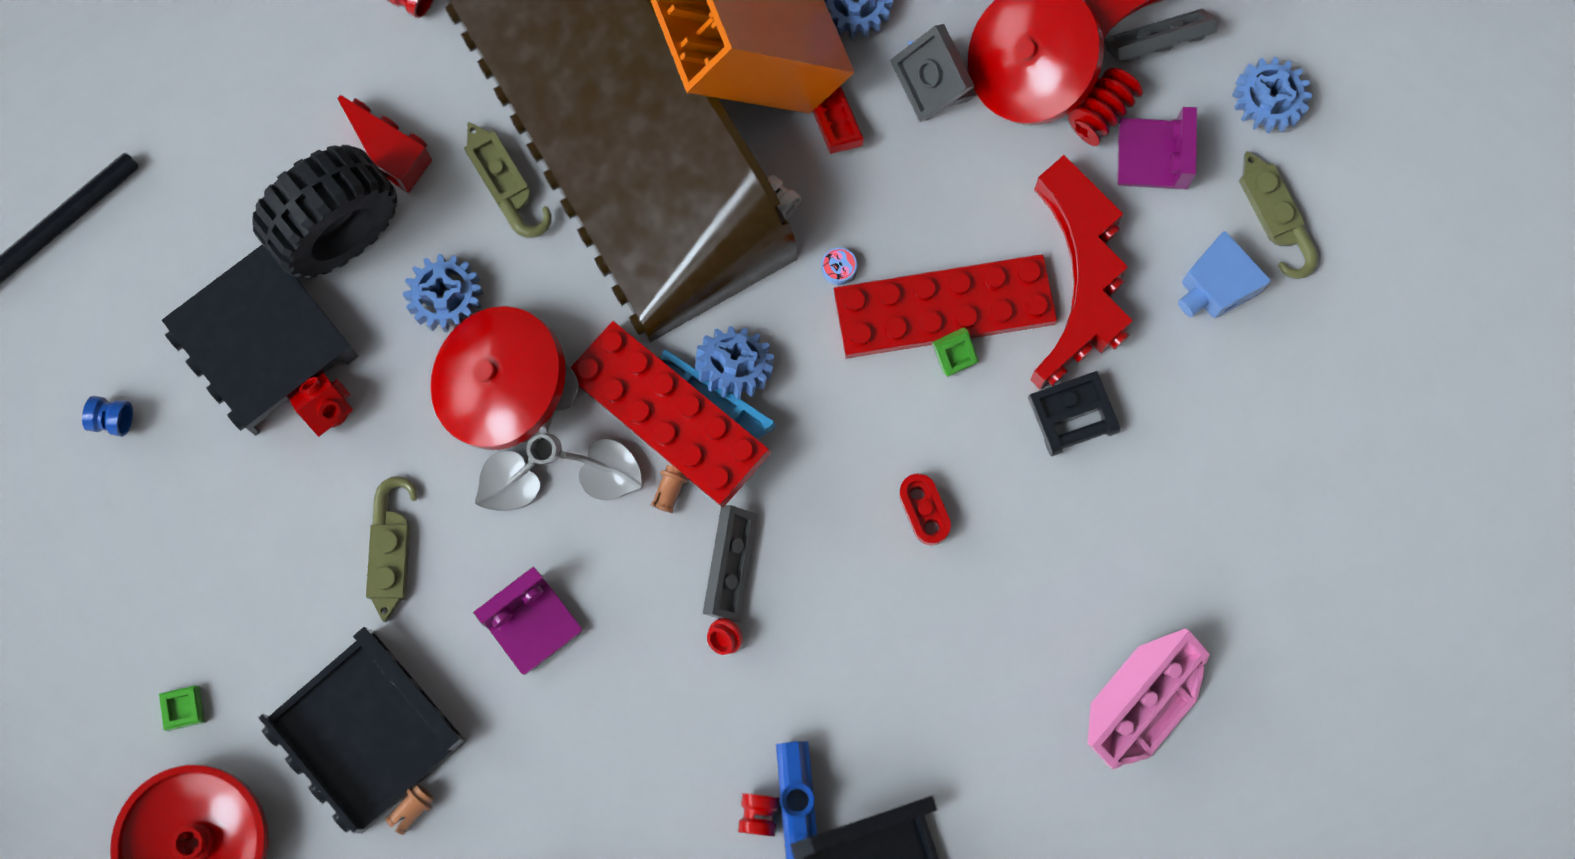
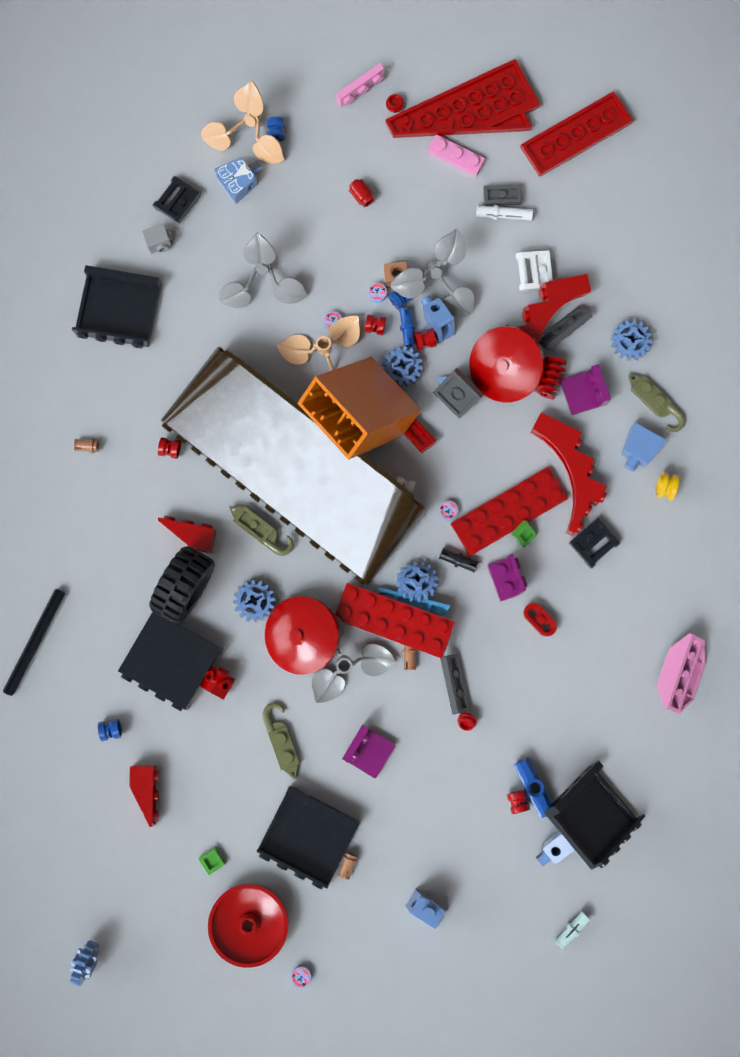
camera: 25 degrees left, 5 degrees up
(119, 542) = (143, 786): none -> red slope
(822, 355) = (458, 560): none -> black pin
(893, 416) = (507, 578): none -> magenta bracket
(1242, 361) = (667, 486): none -> yellow wheel

